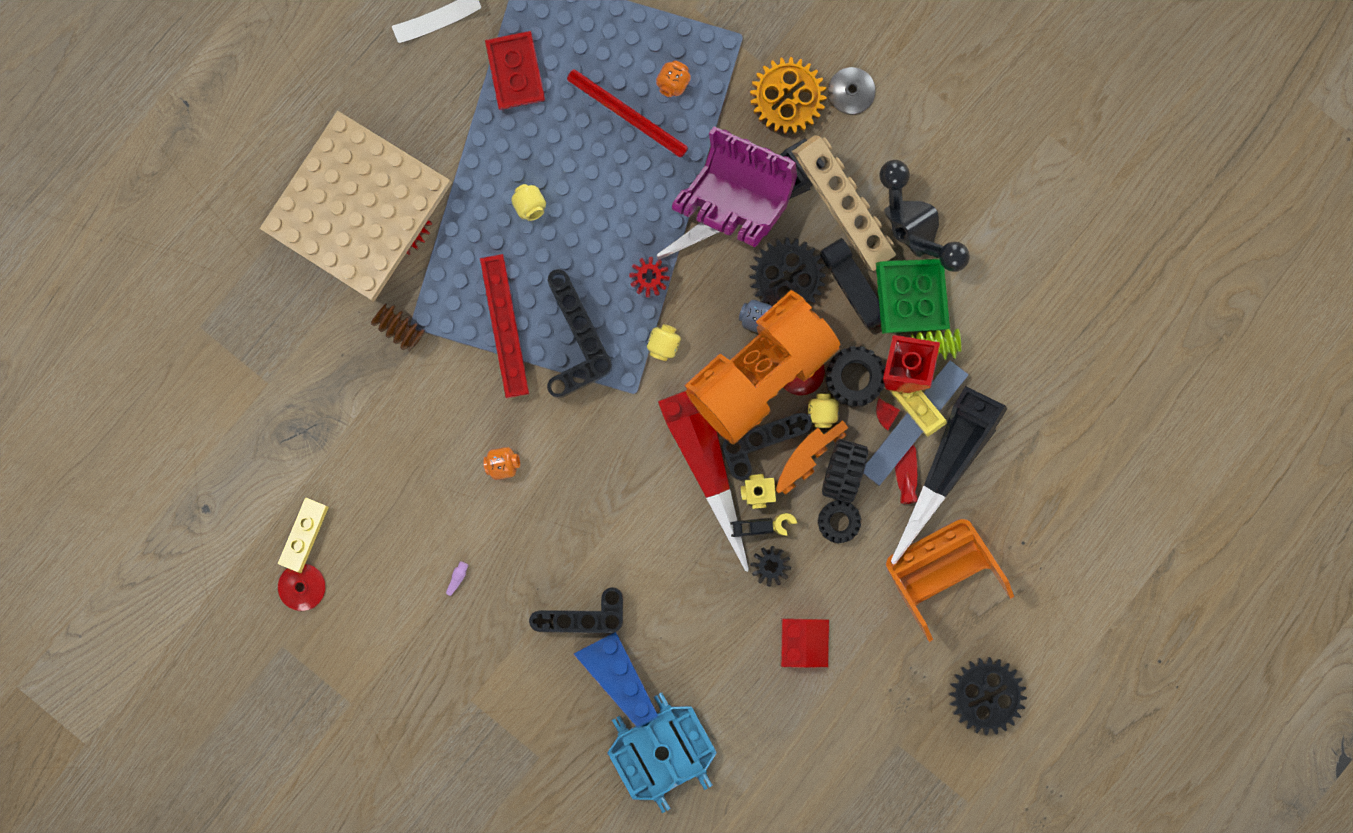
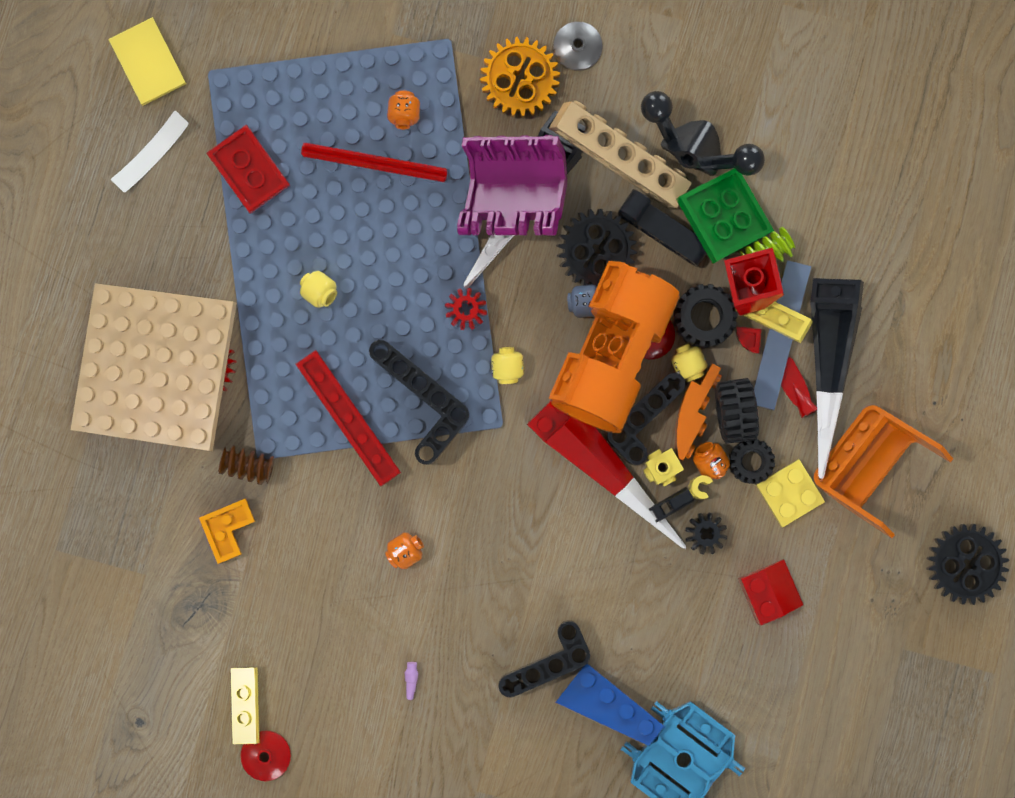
camera: 25 degrees left, 0 degrees up
(350, 371) = (220, 527): none -> light orange plate
(804, 504) = (711, 460): none -> orange head
(860, 564) = (790, 493): none -> light yellow plate

